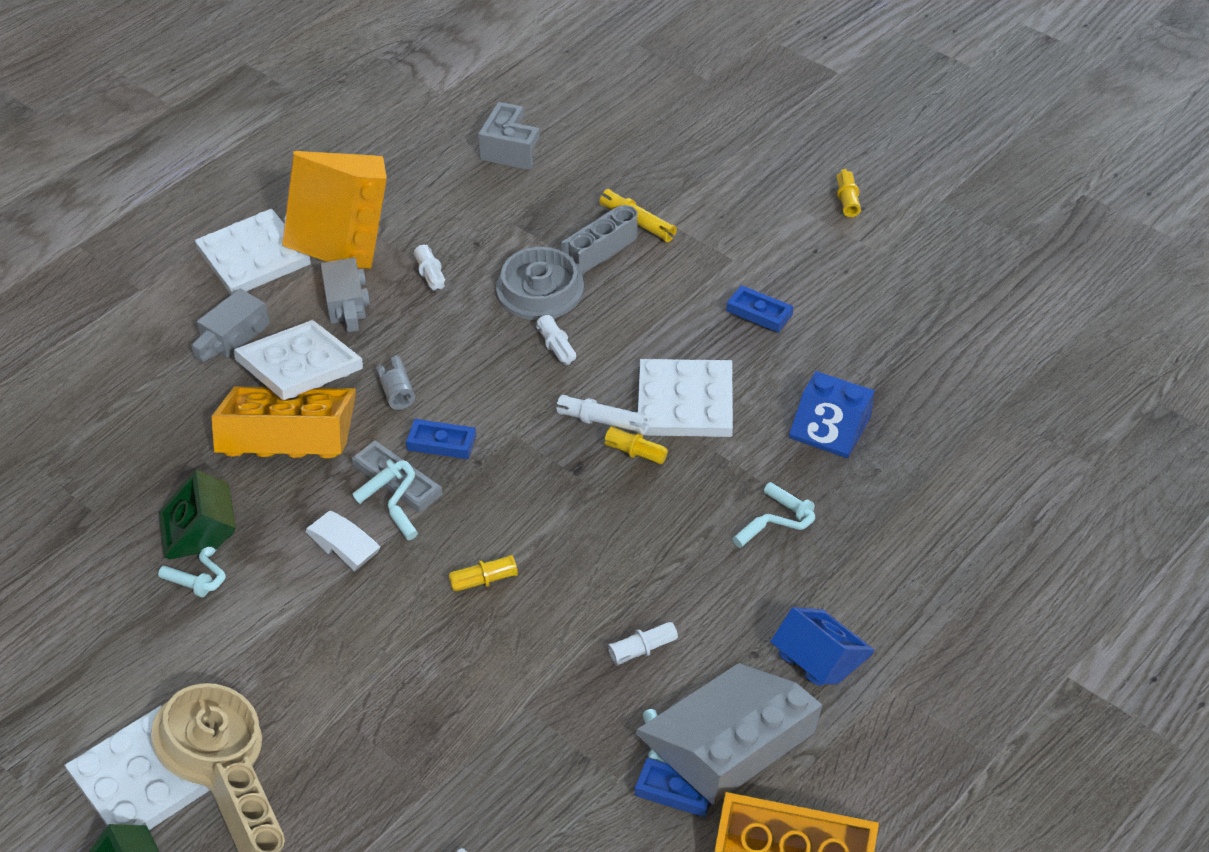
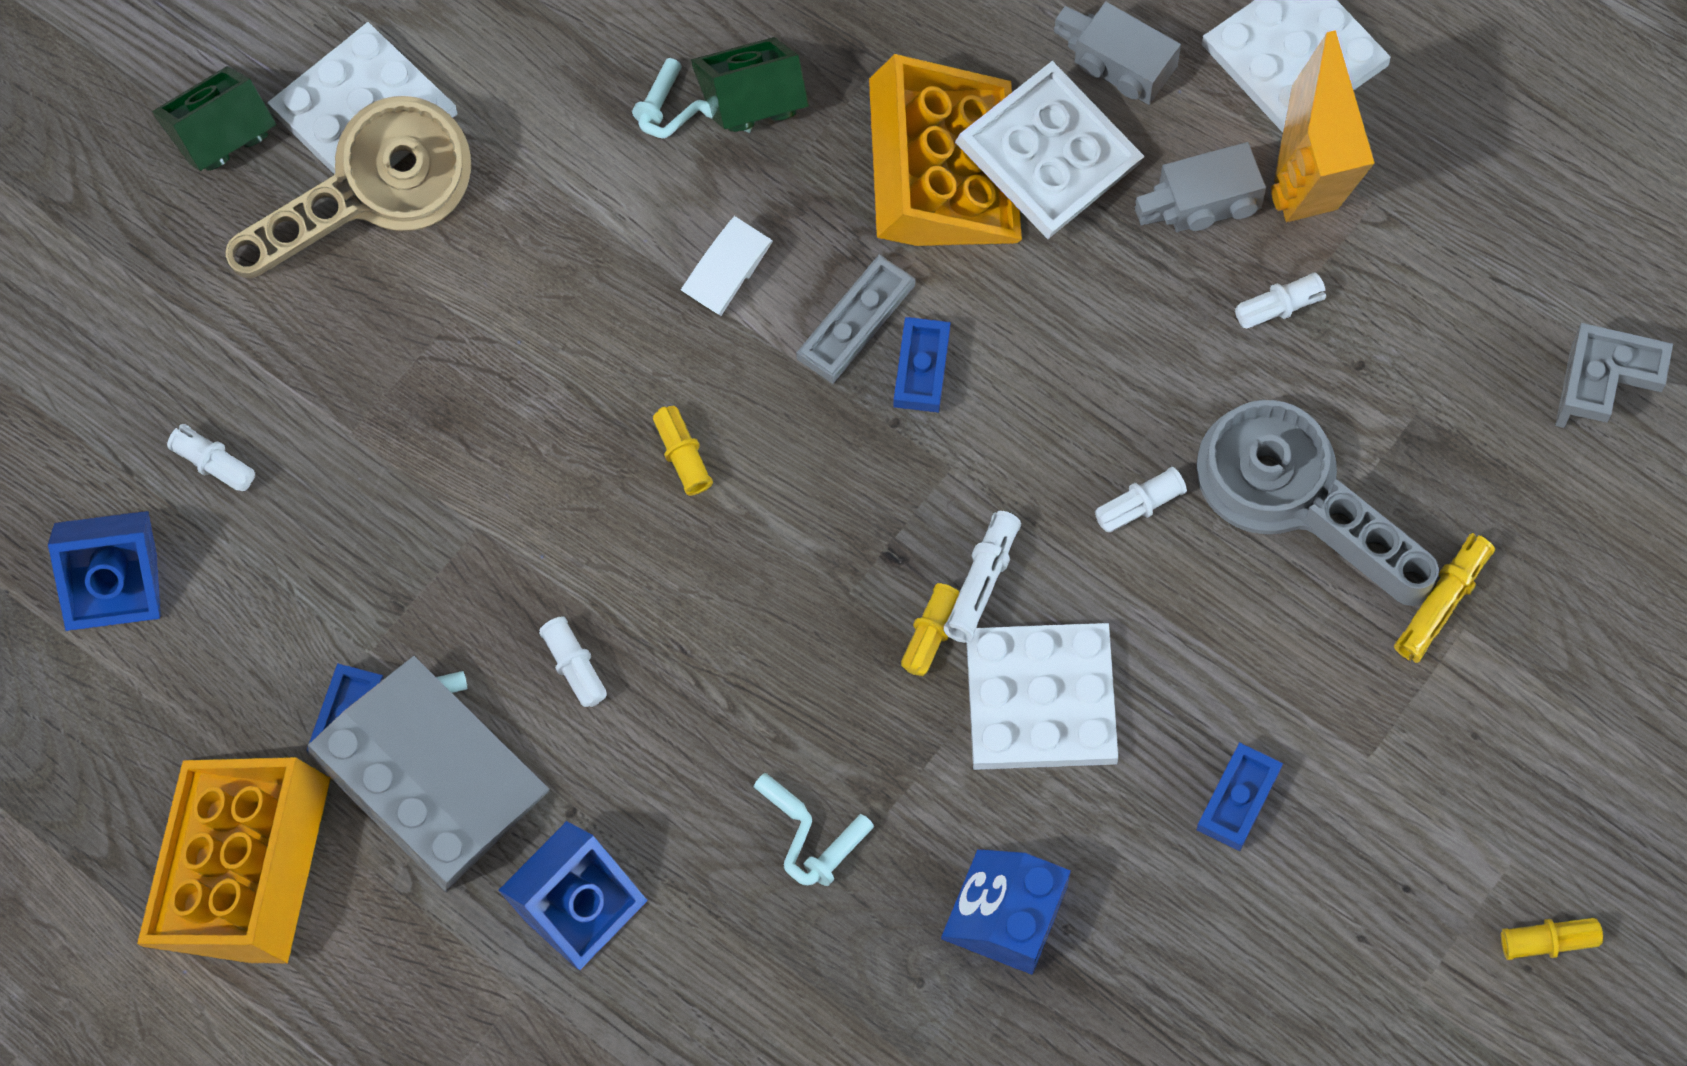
camera: 85 degrees right, 20 degrees up
(378, 481) = (844, 309): light aqua piece -> none
(396, 385) = (1028, 288): light grey hinge -> none

